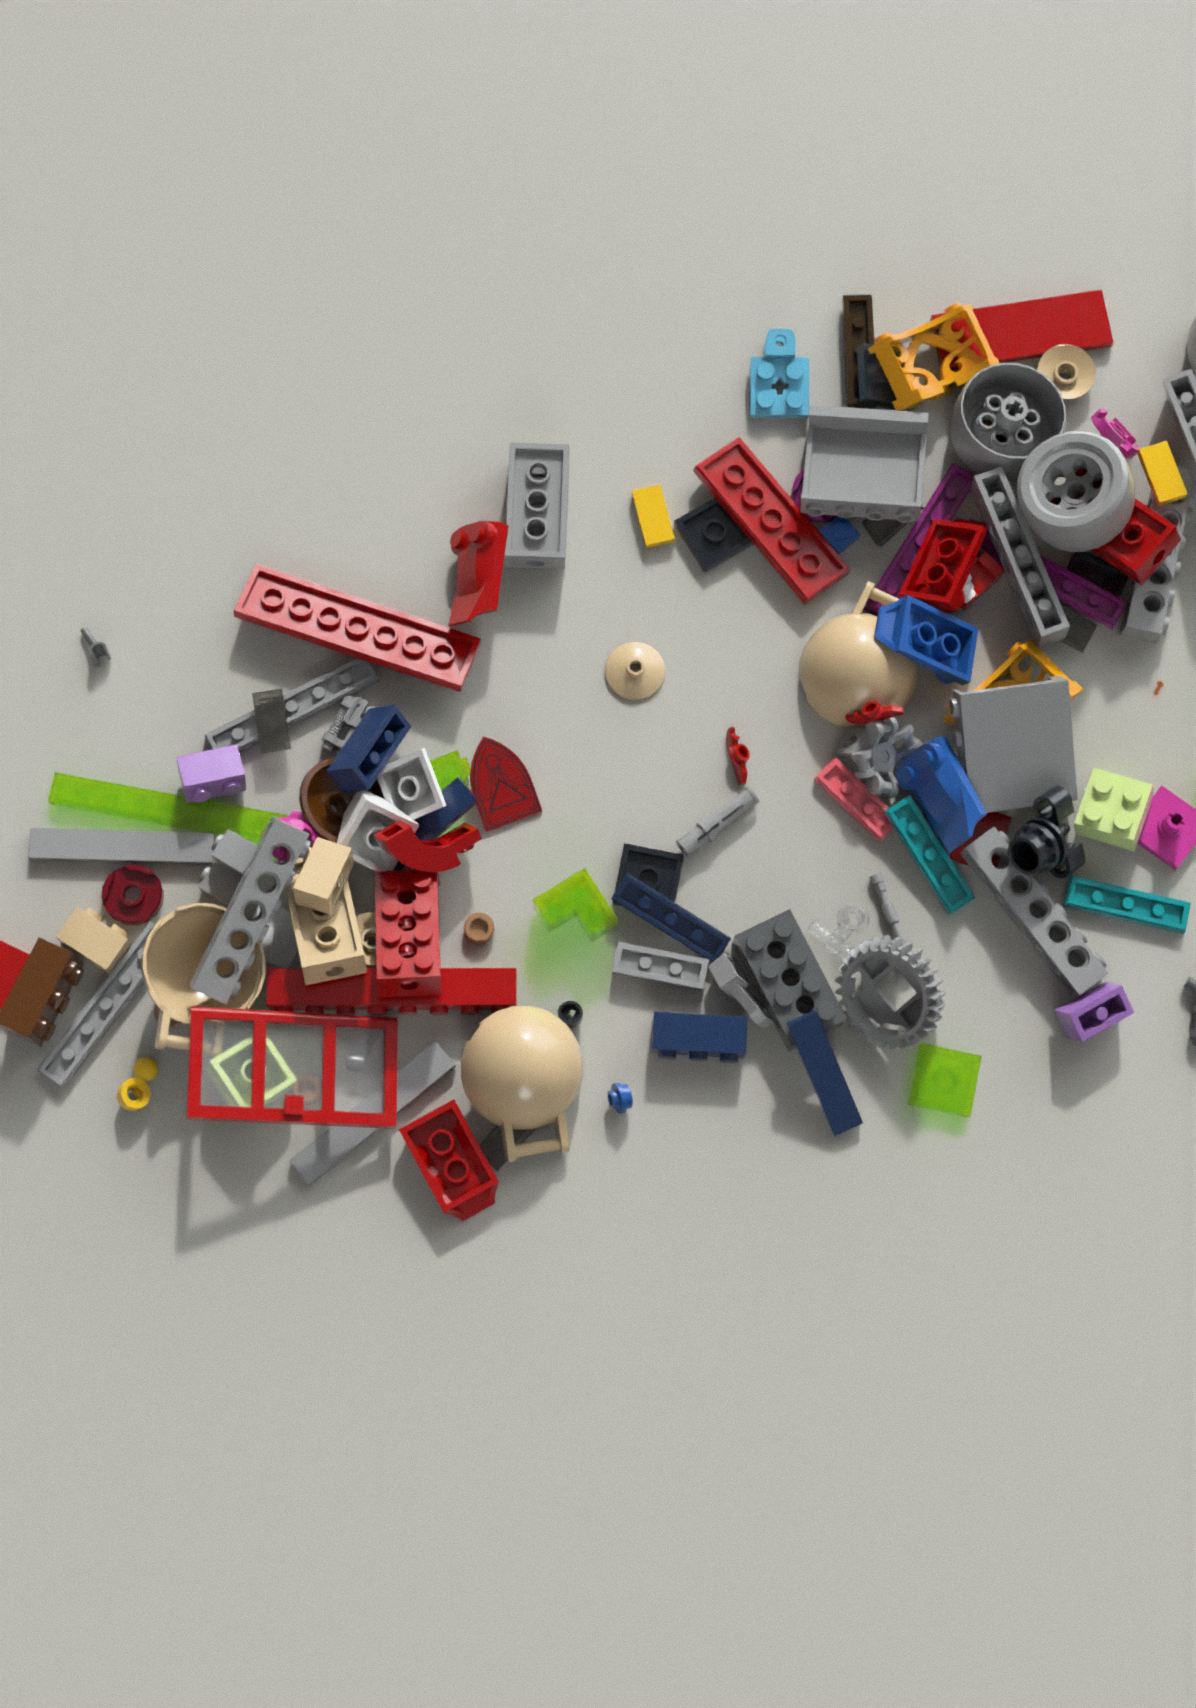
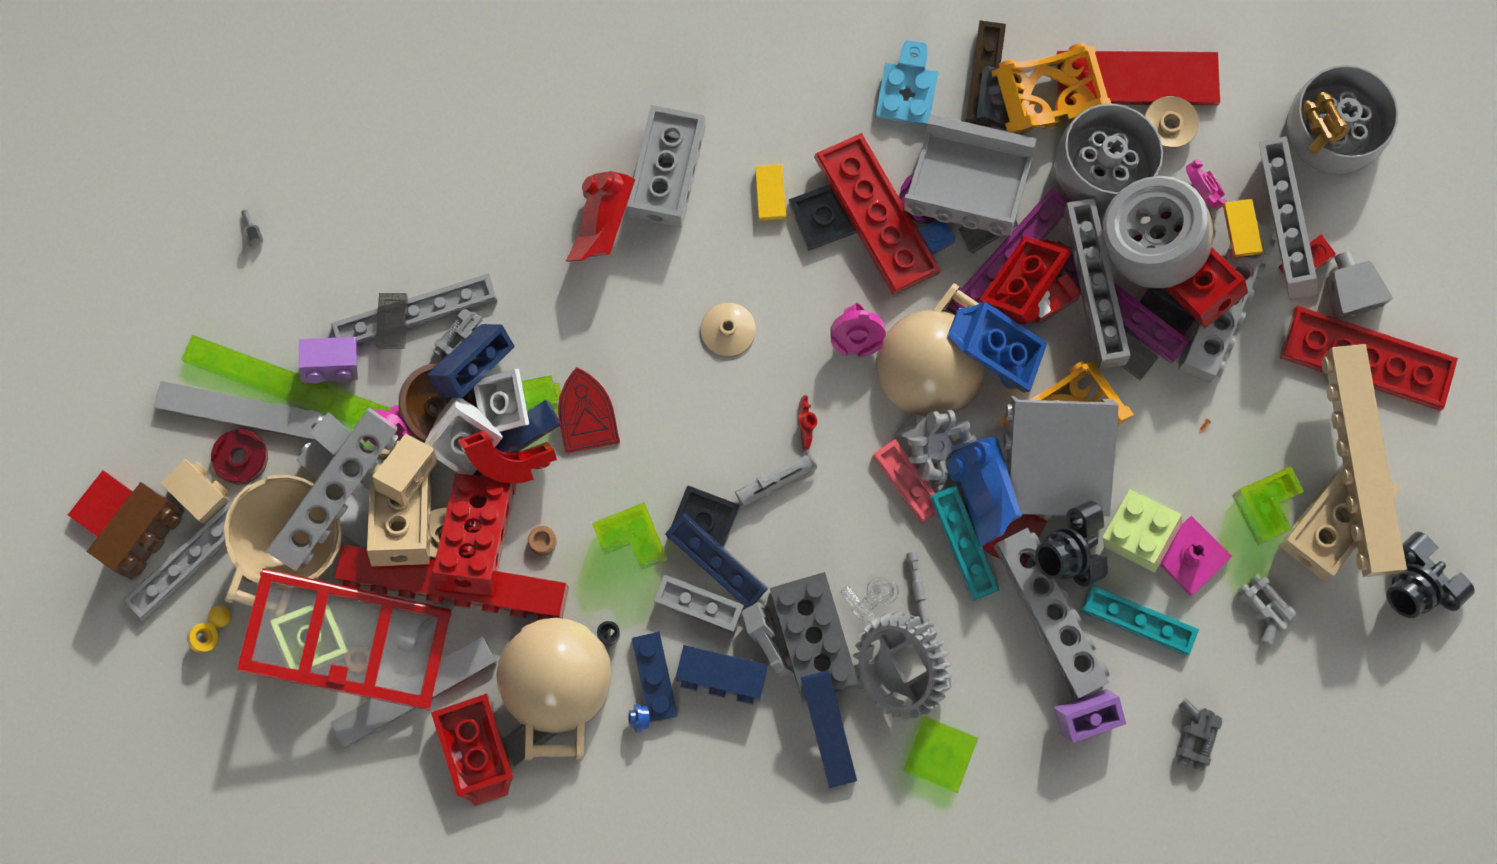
camera: 15 degrees right, 0 degrees up
(357, 627) = (485, 250): plate -> none
(627, 1051) = (654, 677): none -> dark blue plate
(776, 650) = (857, 332): none -> dark pink tile
(874, 712) = (935, 403): red piece -> none

